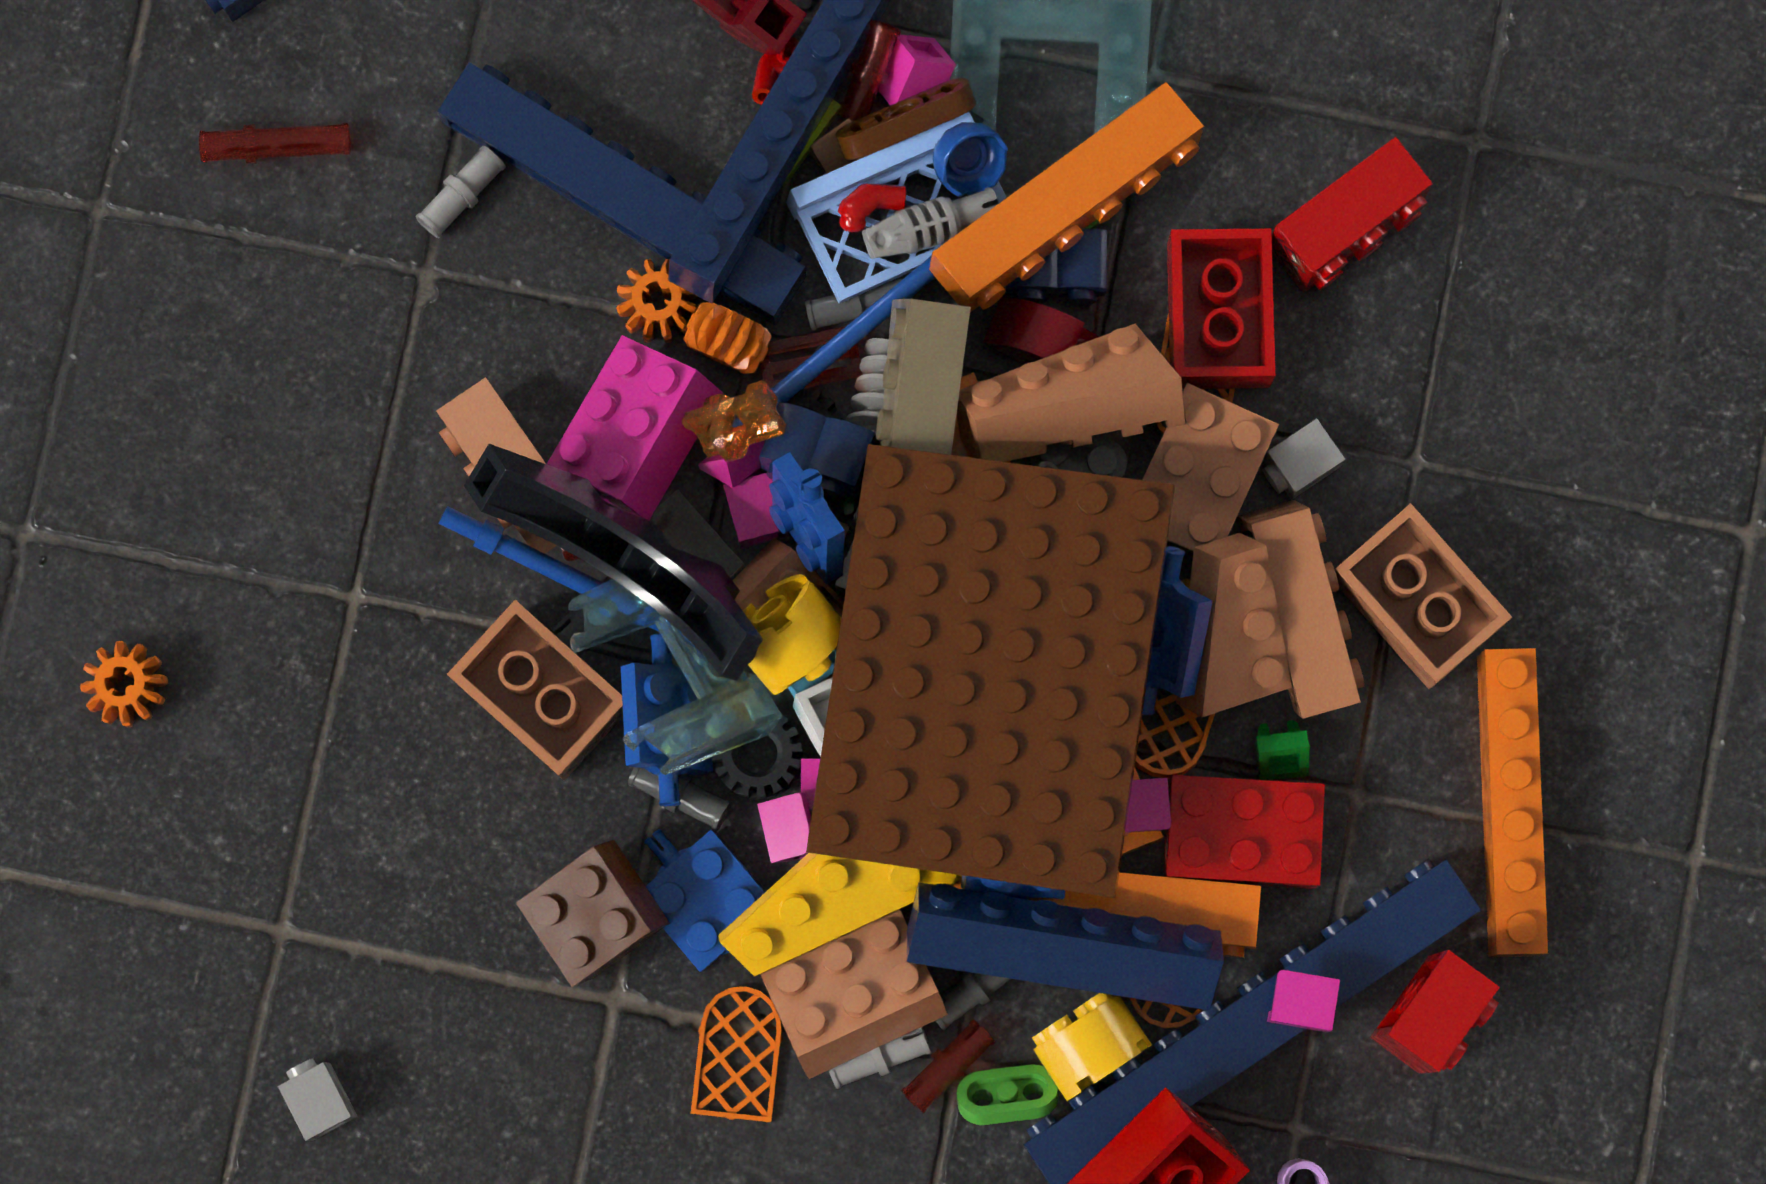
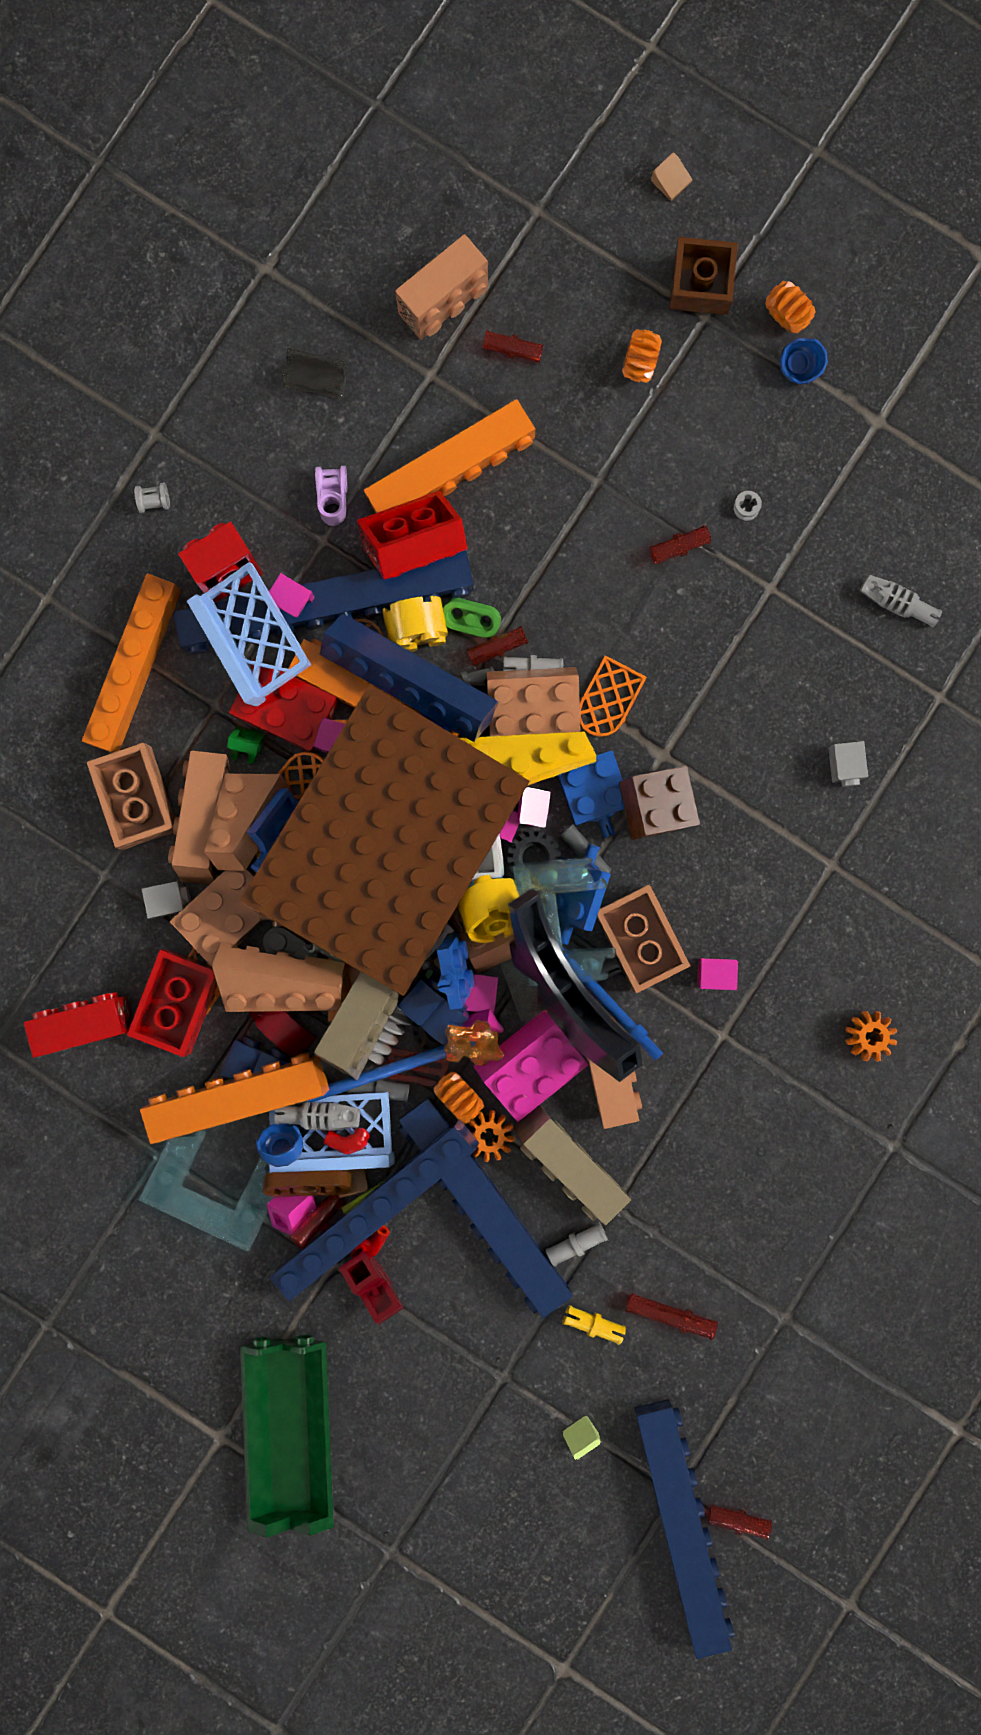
camera: 160 degrees left, 5 degrees up
(388, 84) = (594, 1325): none -> yellow pin
(400, 683) = (717, 974): none -> dark pink panel
(515, 303) = (571, 1165): none -> dark tan wedge
(1369, 881) = (233, 654): none -> light blue fence
(1596, 1085) = (152, 497): none -> light grey bush

